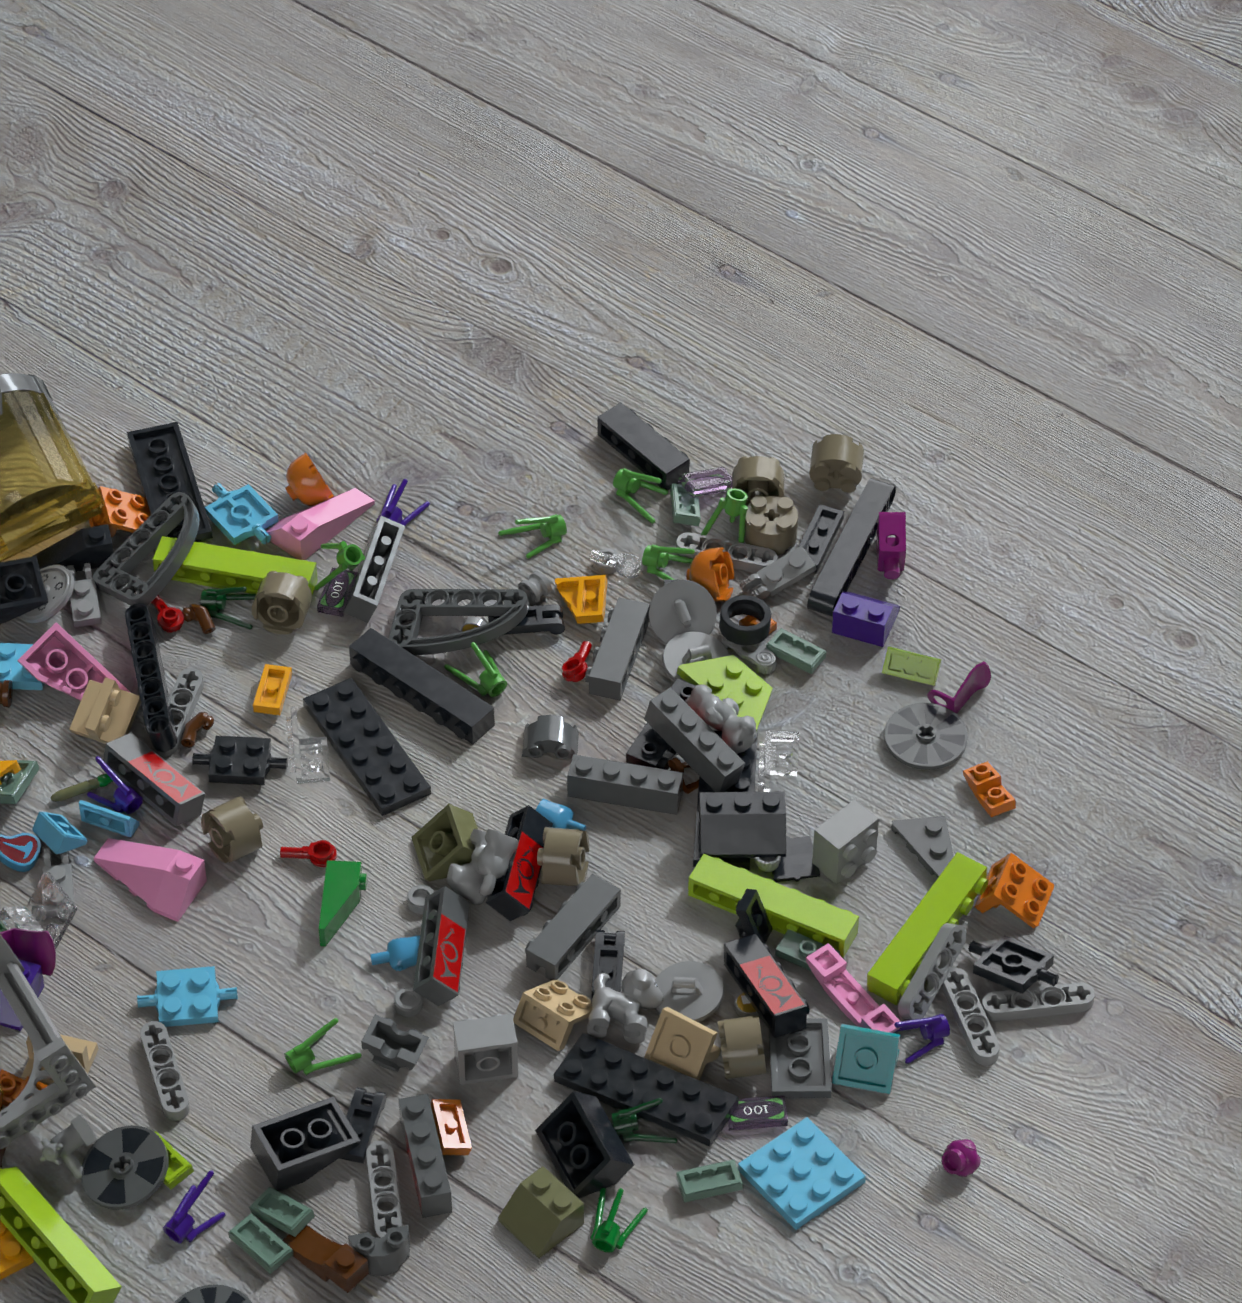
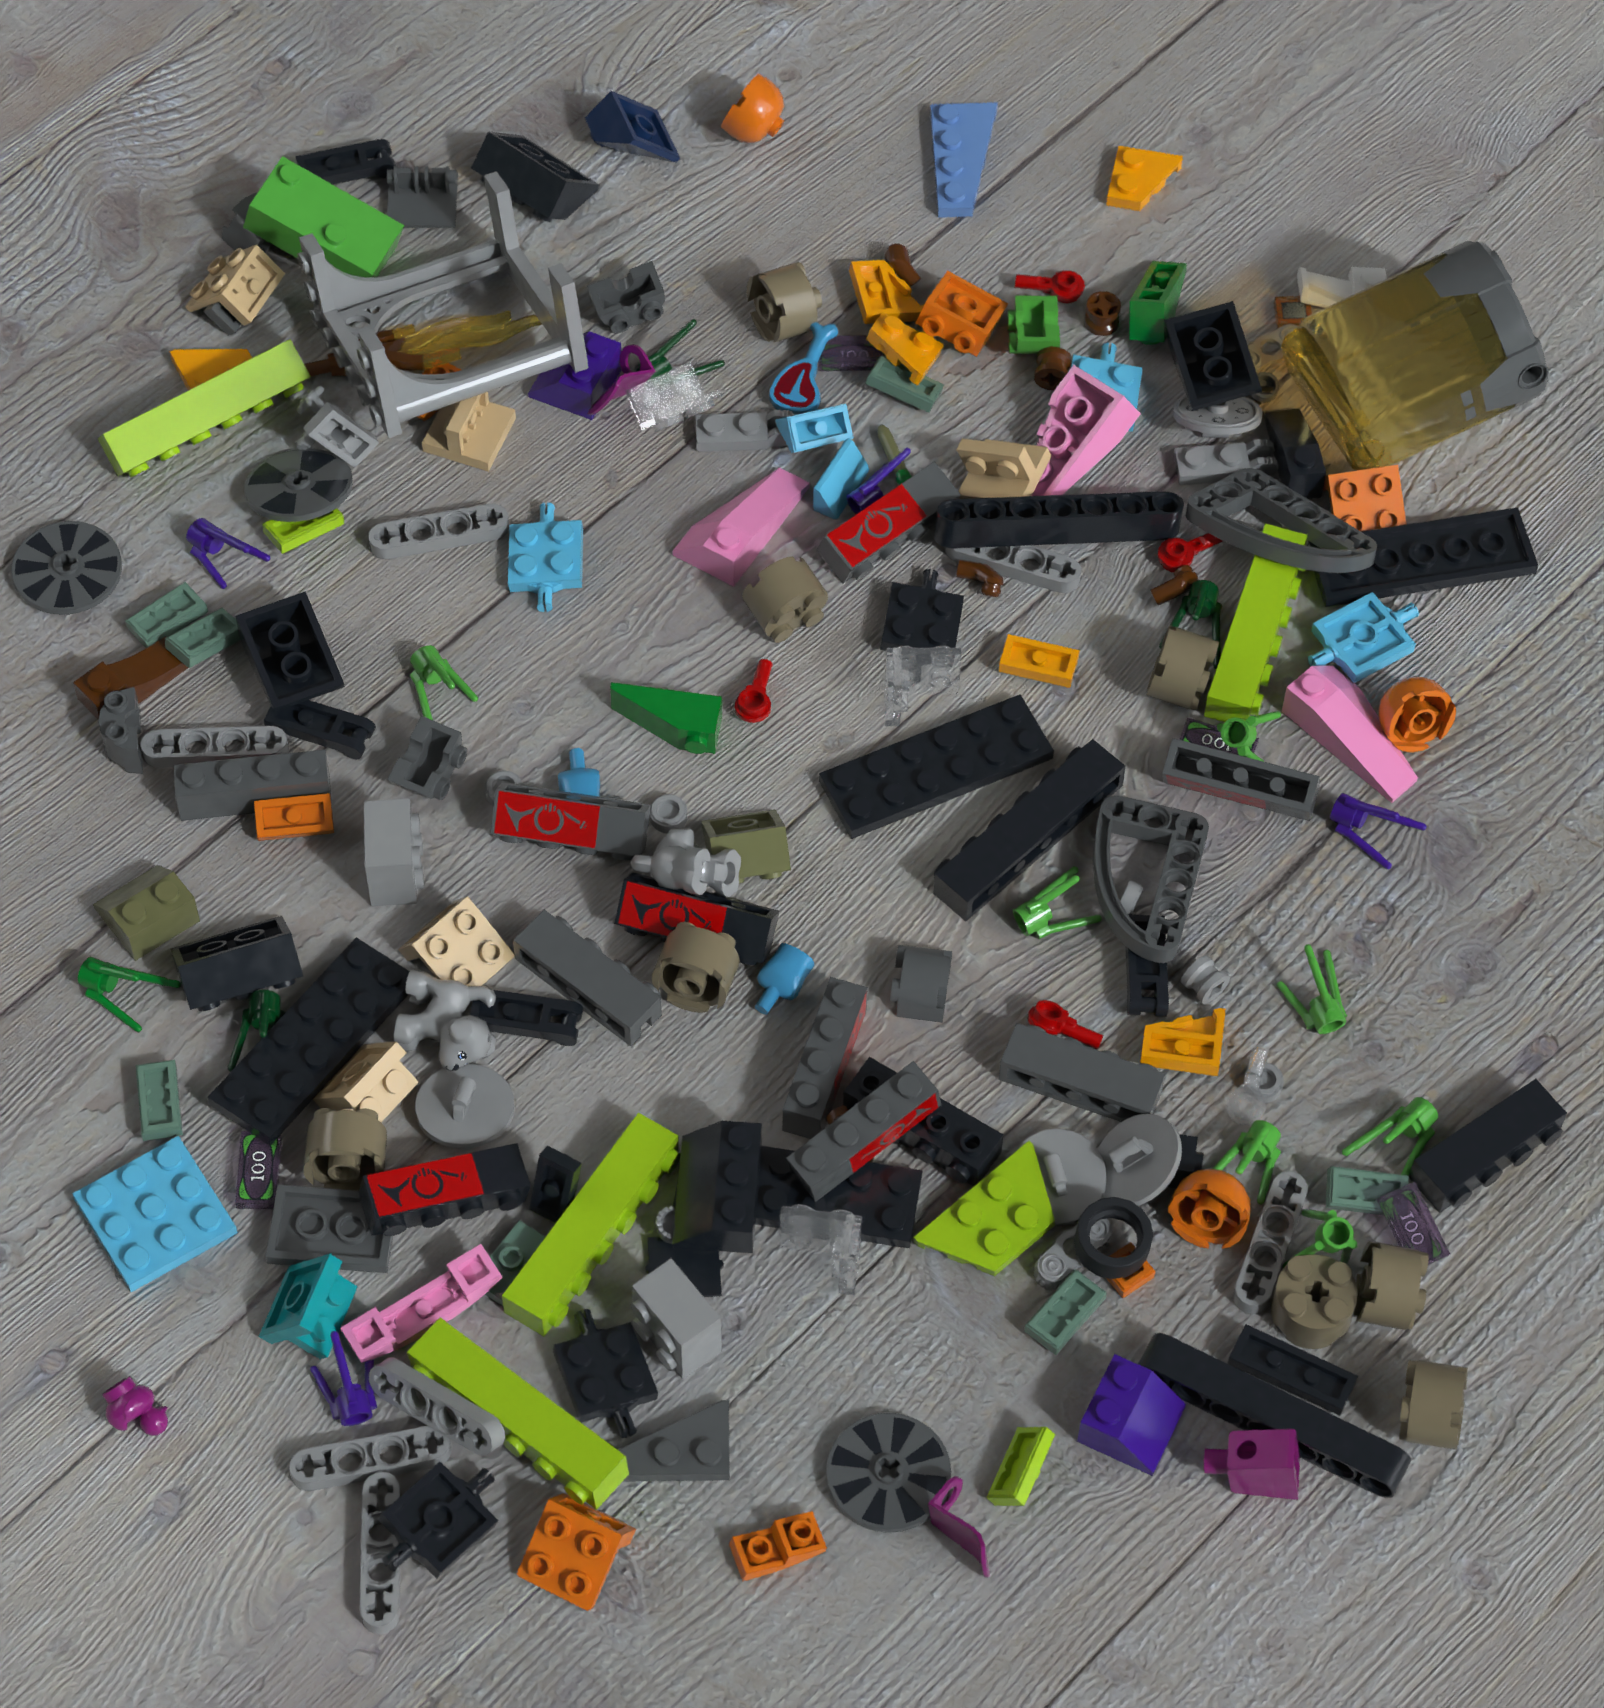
camera: 95 degrees right, 10 degrees up
(737, 731) = (884, 1193): light grey animal -> none
(780, 574) = (1215, 1304): light grey hinge -> none
(882, 891) = (605, 1372): none -> black plate

